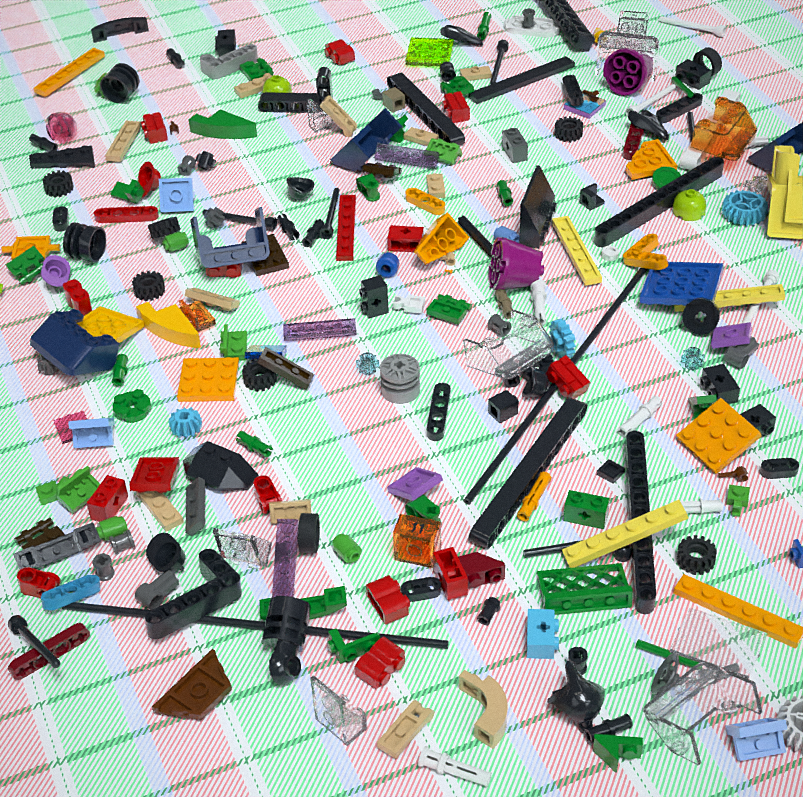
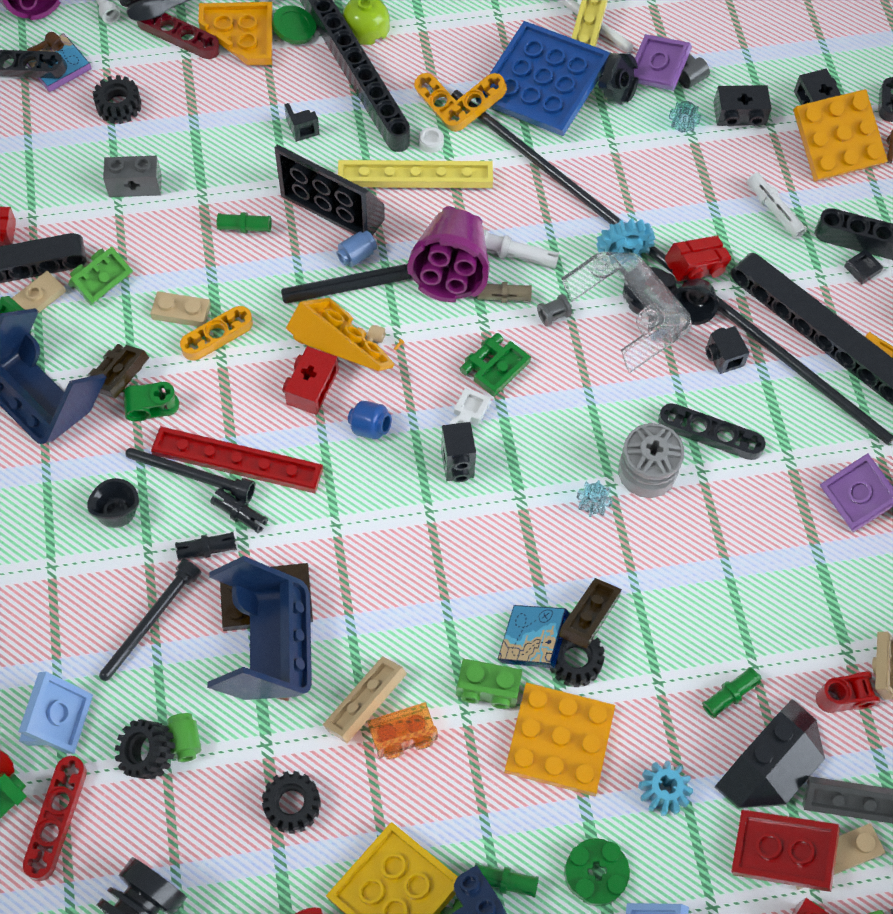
camera: 80 degrees left, 20 degrees up
(169, 325) = (413, 780): yellow slope -> none
(214, 217) = (140, 659): dark grey gear -> none
(319, 329) = (492, 550): clear purple plate -> none
(407, 156) = (89, 328): clear purple plate -> none
(700, 403) = (772, 133): green slope -> none

